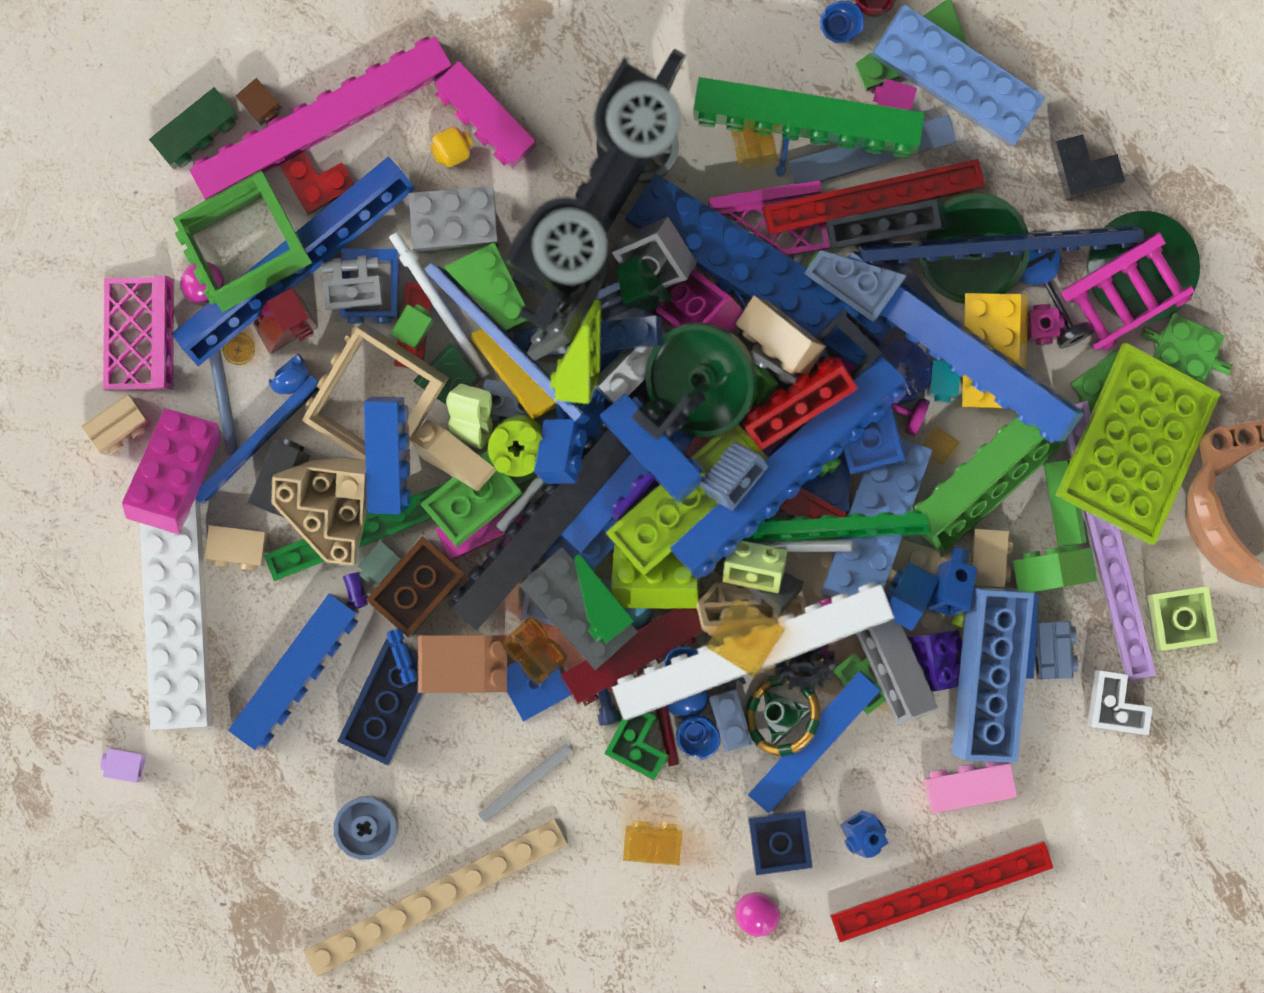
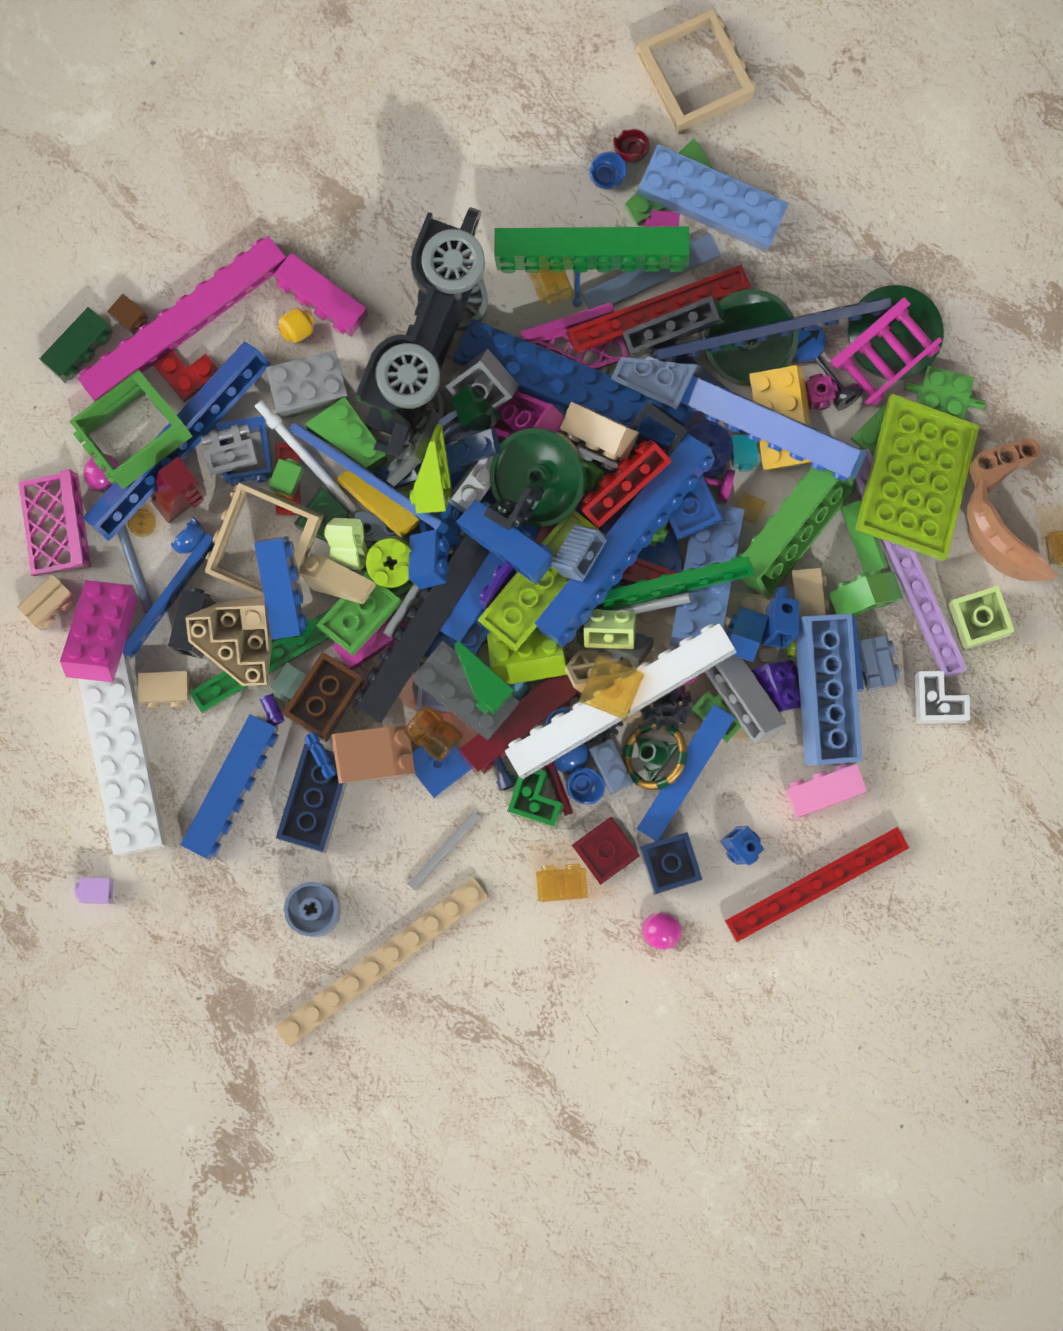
camera: 10 degrees left, 5 degrees down
(708, 813) = (605, 850): none -> dark red plate
(1079, 174) = (830, 263): black brick -> none

